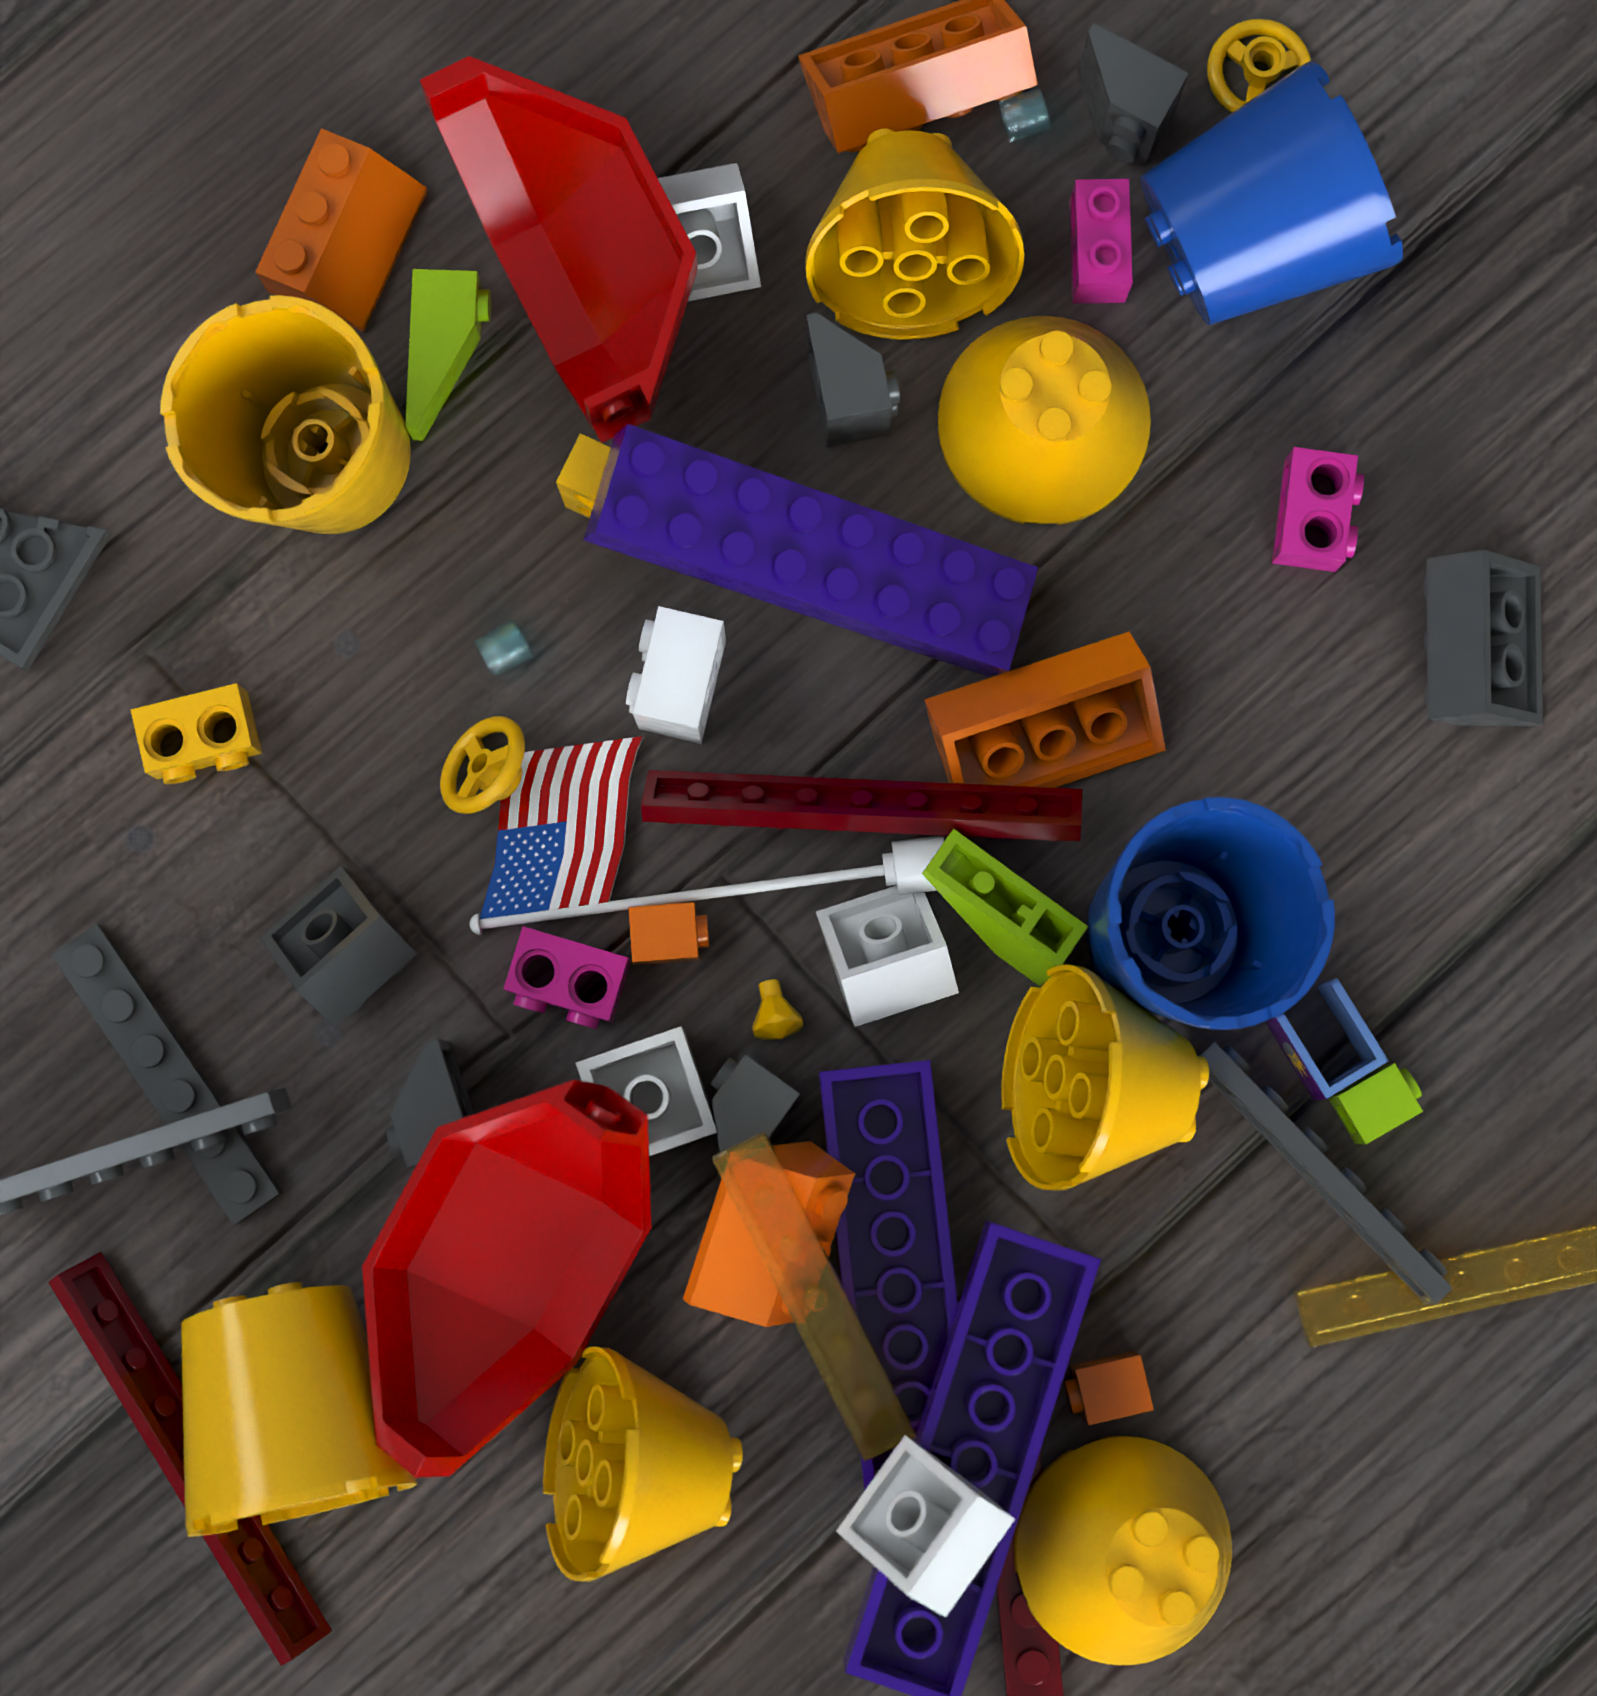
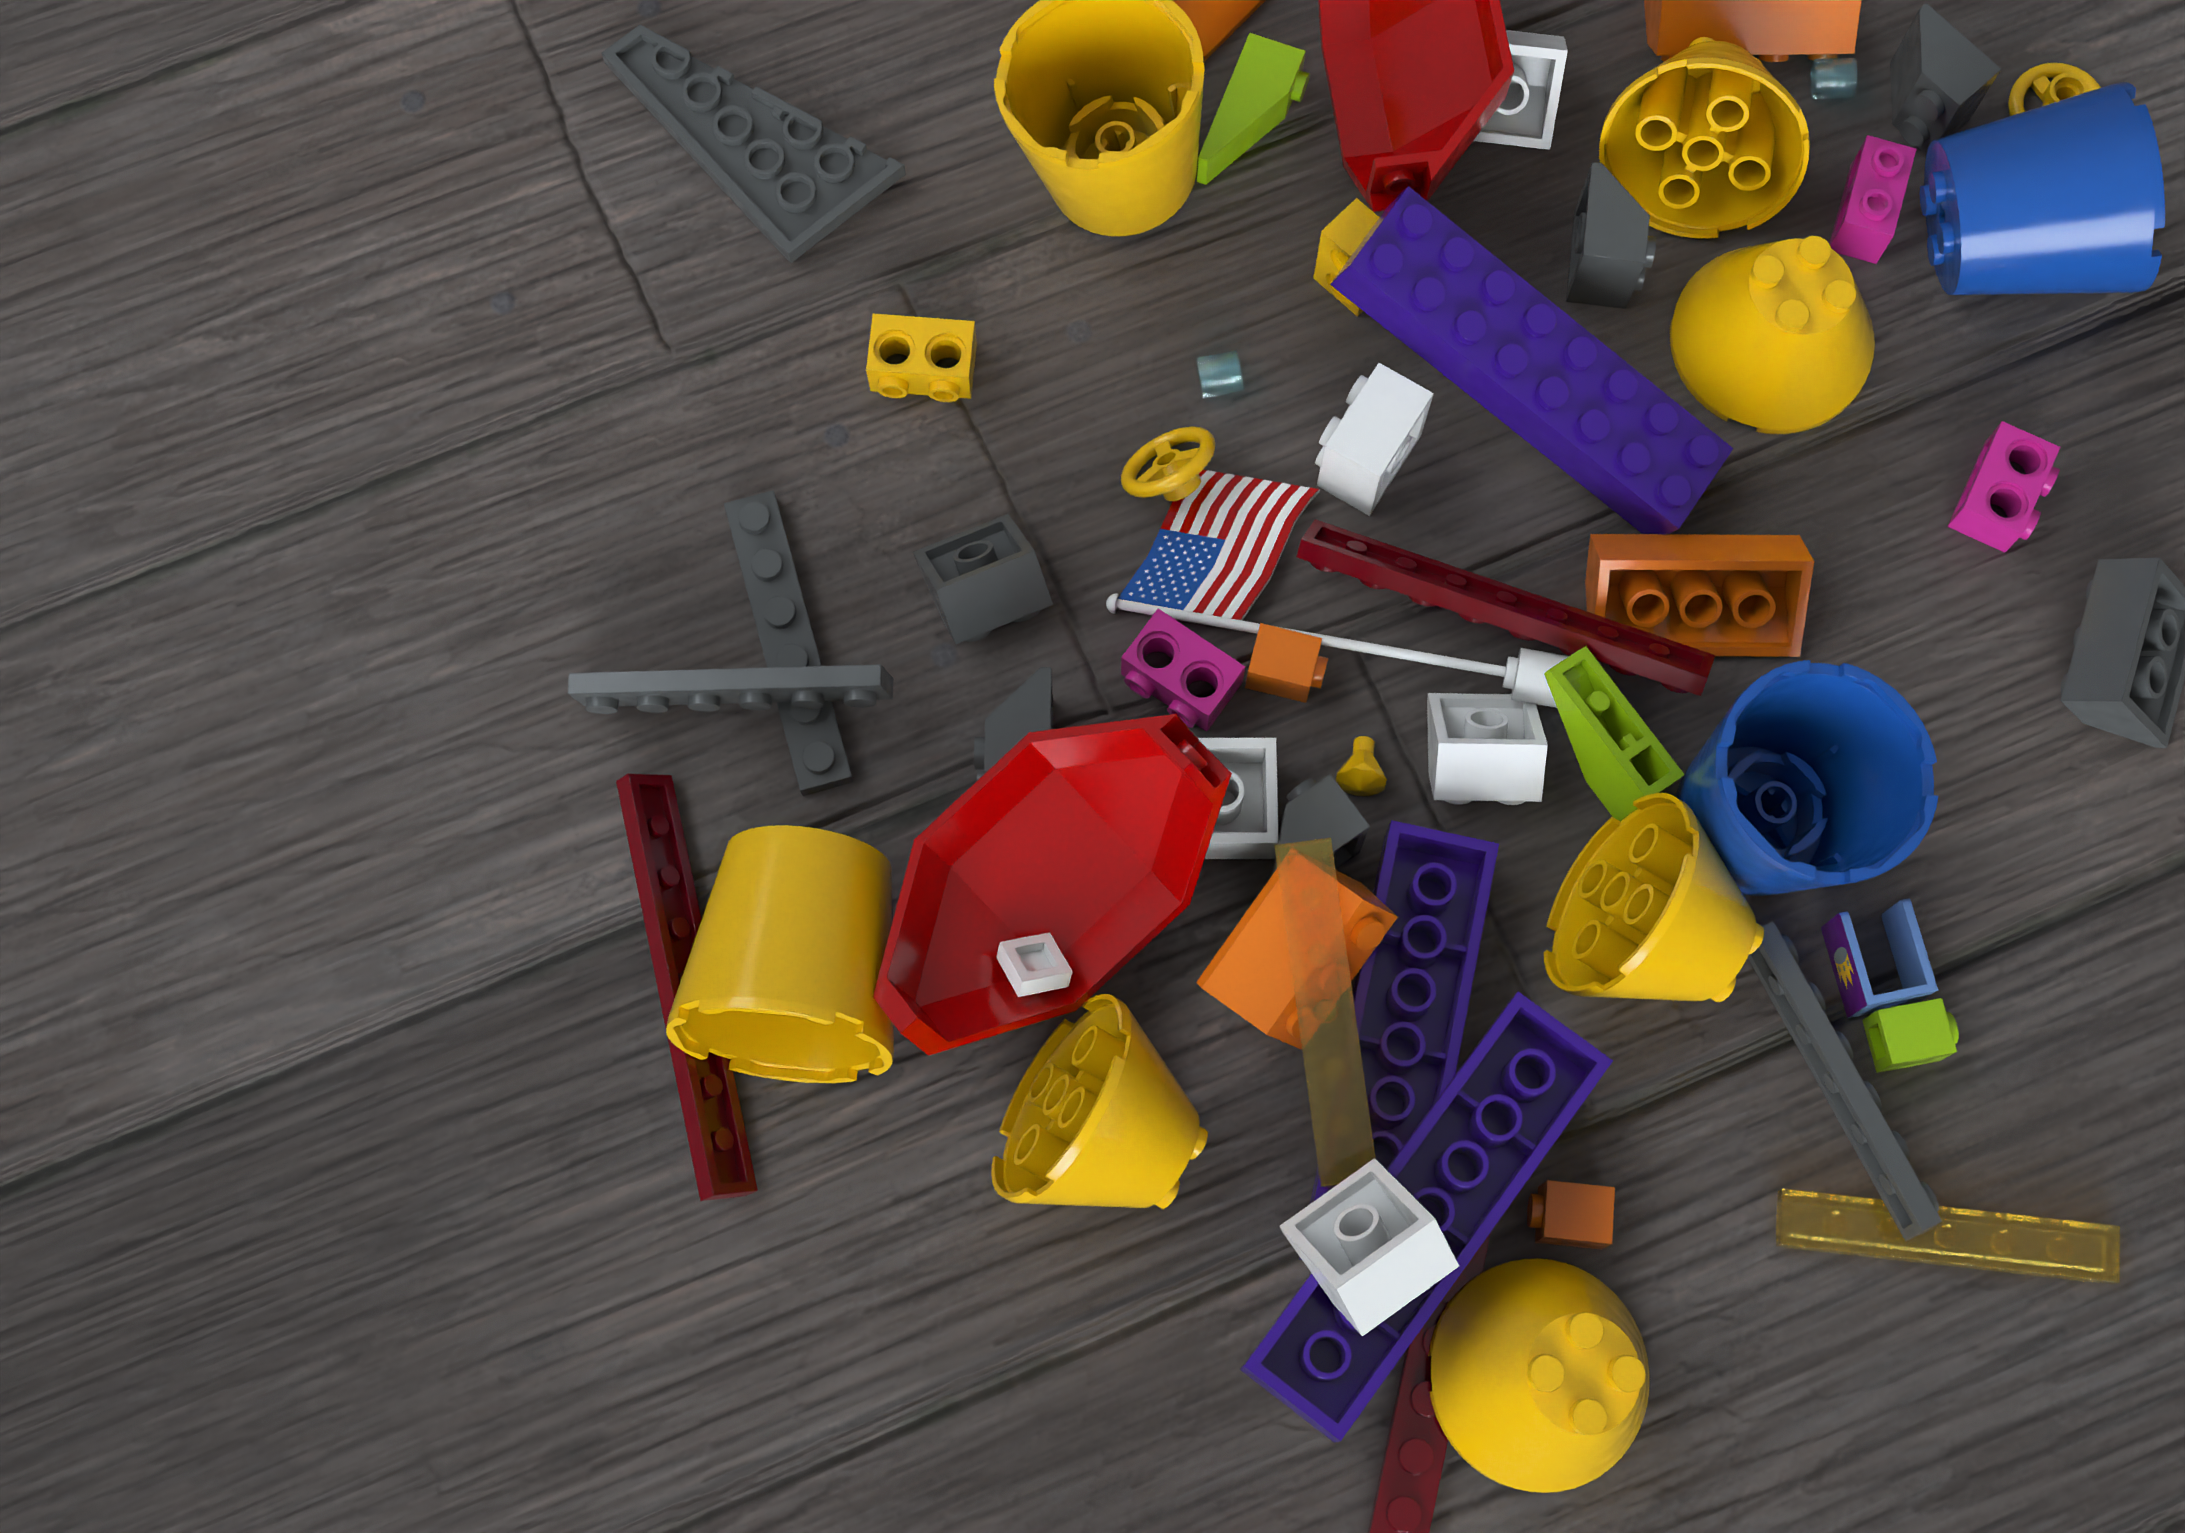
camera: 20 degrees right, 10 degrees down
(521, 1338) = (1034, 964): none -> white plate

